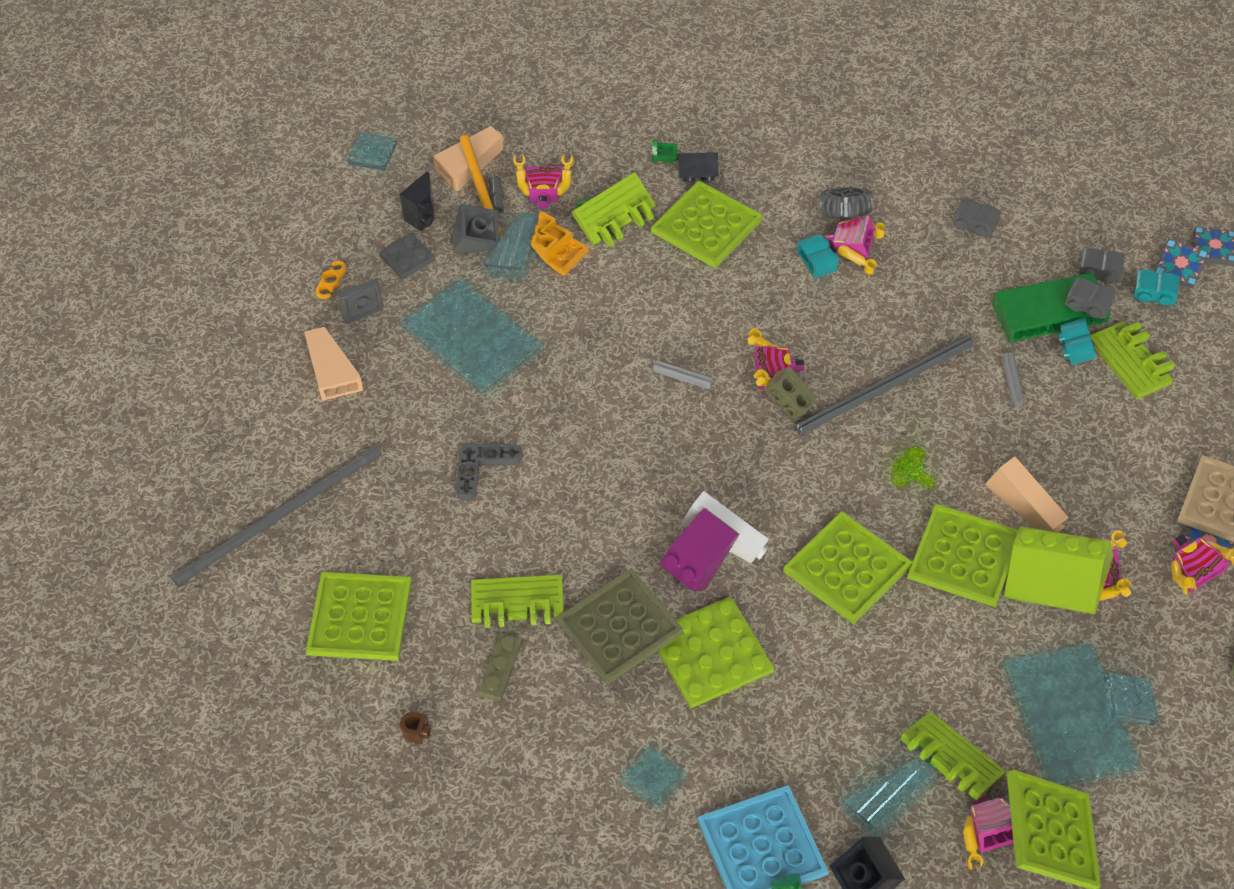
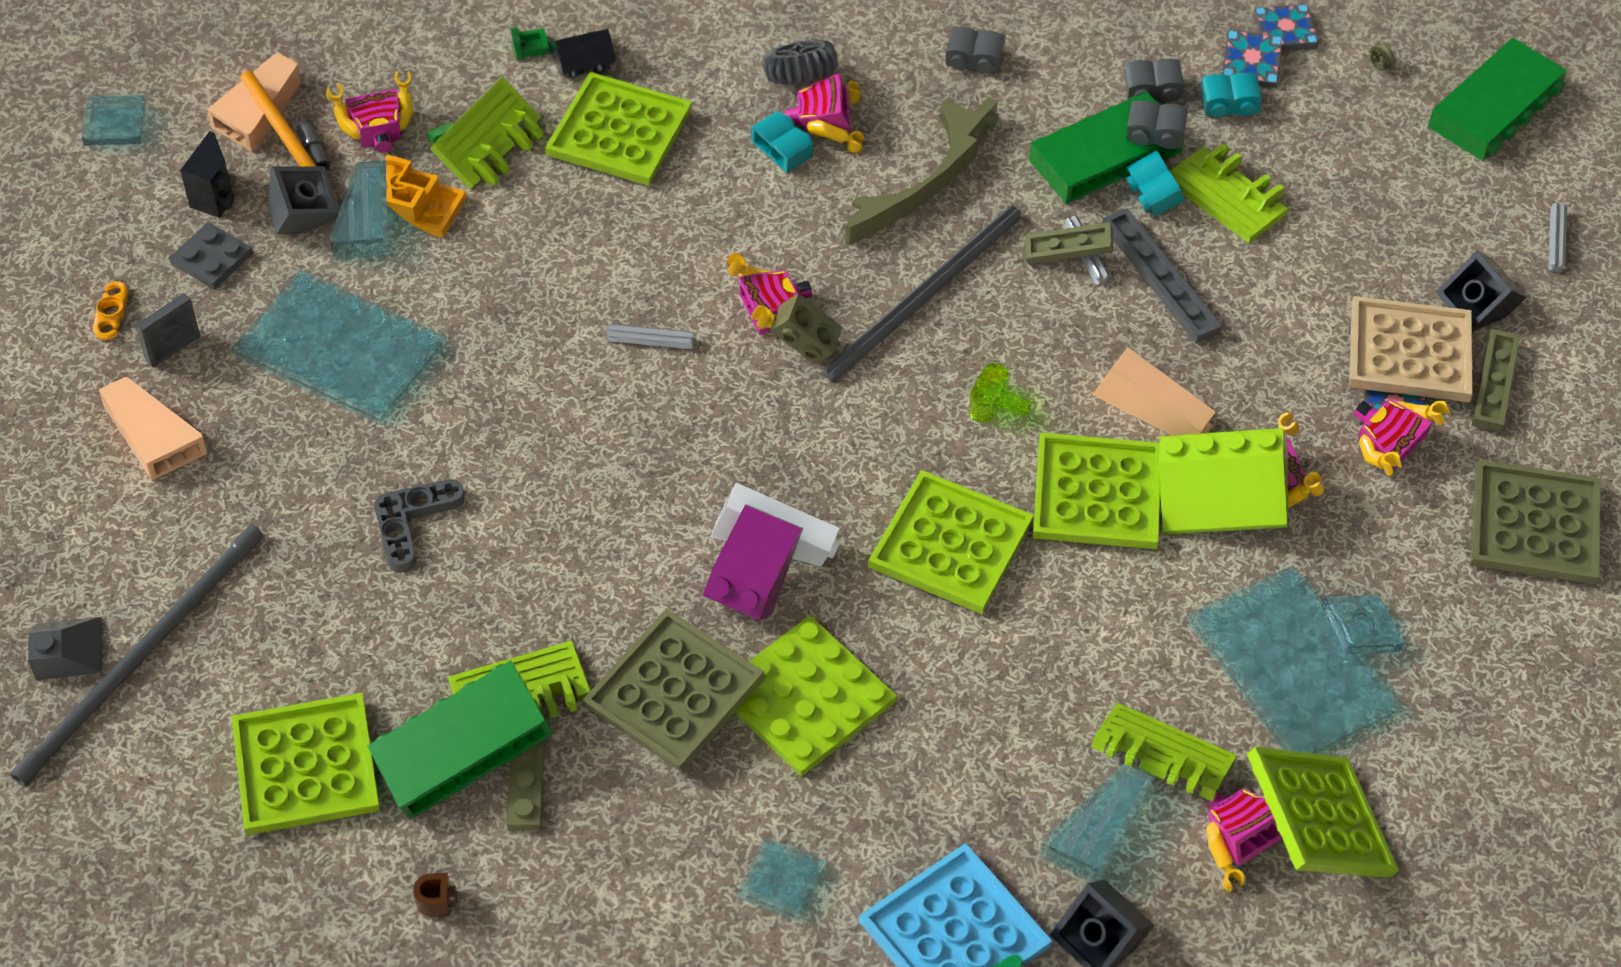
camera: 20 degrees left, 0 degrees up
(231, 500) = (65, 648): none -> dark grey slope
(463, 625) = (459, 740): none -> green brick
(950, 275) = (963, 134): none -> olive slope
(1000, 371) = (1069, 243): none -> olive plate
(1062, 409) = (1163, 277): none -> dark grey plate

